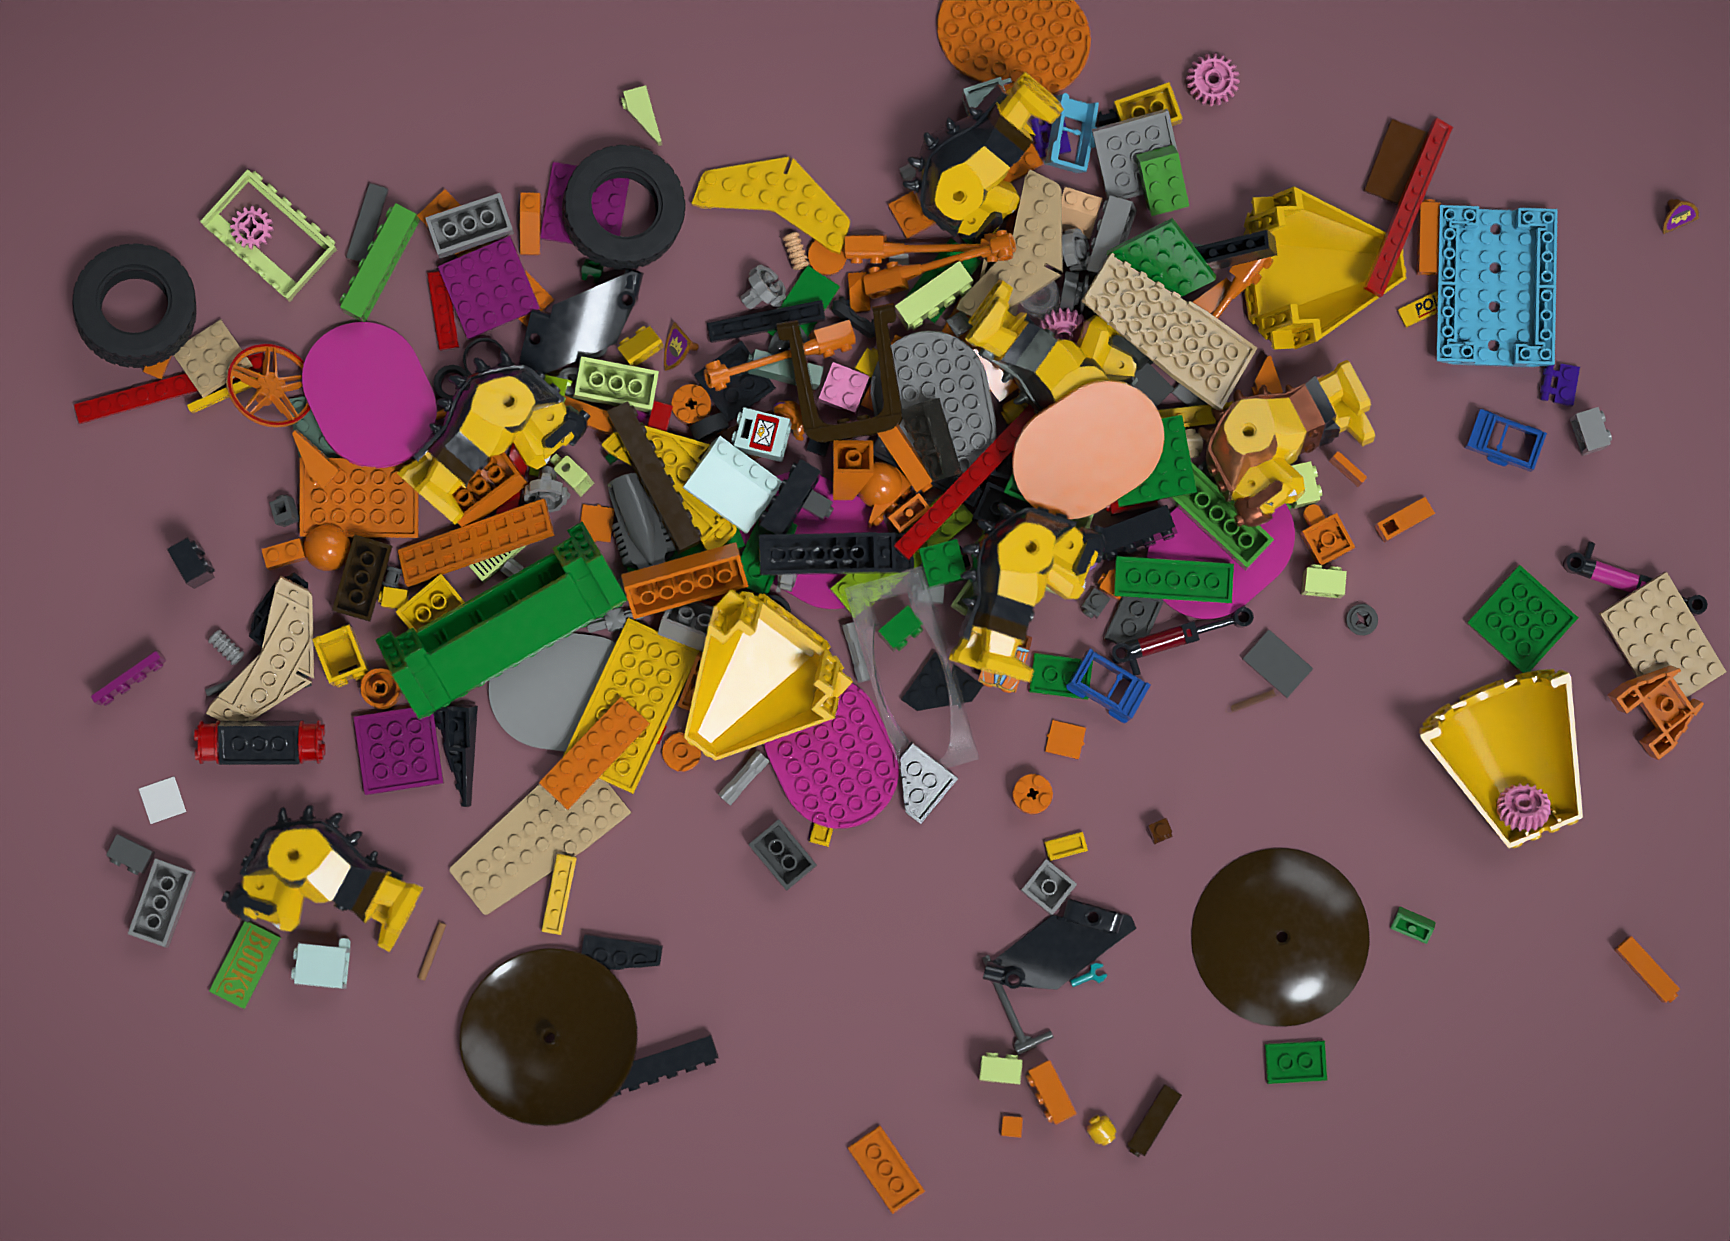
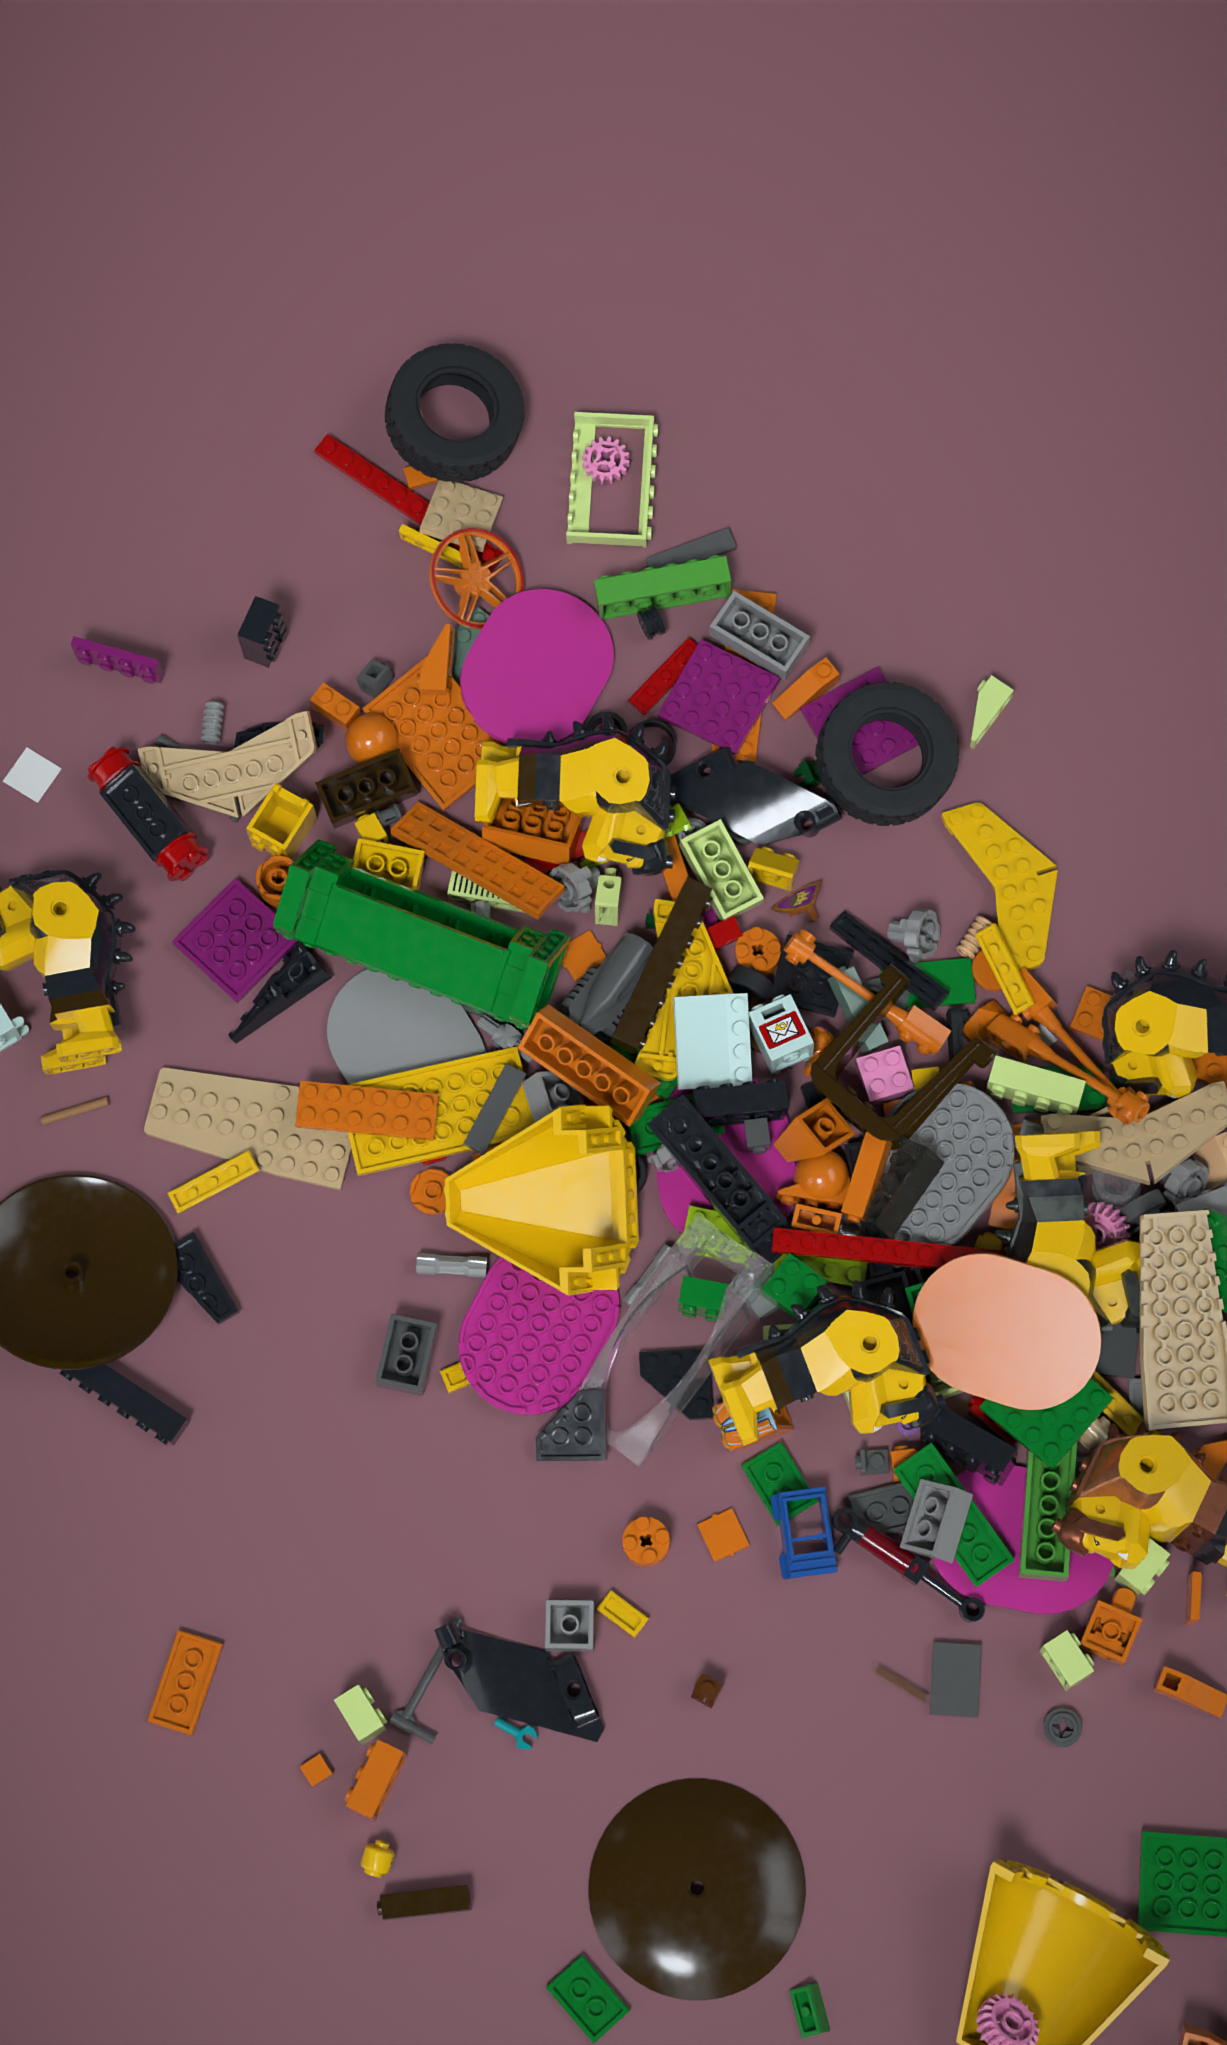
camera: 60 degrees right, 10 degrees down
(397, 290) = (651, 622): none -> black wheel
(661, 666) = (494, 1109): none -> dark grey tile
(836, 249) = (1005, 969): none -> yellow tile
(1170, 594) = (936, 1520): none -> light grey slope

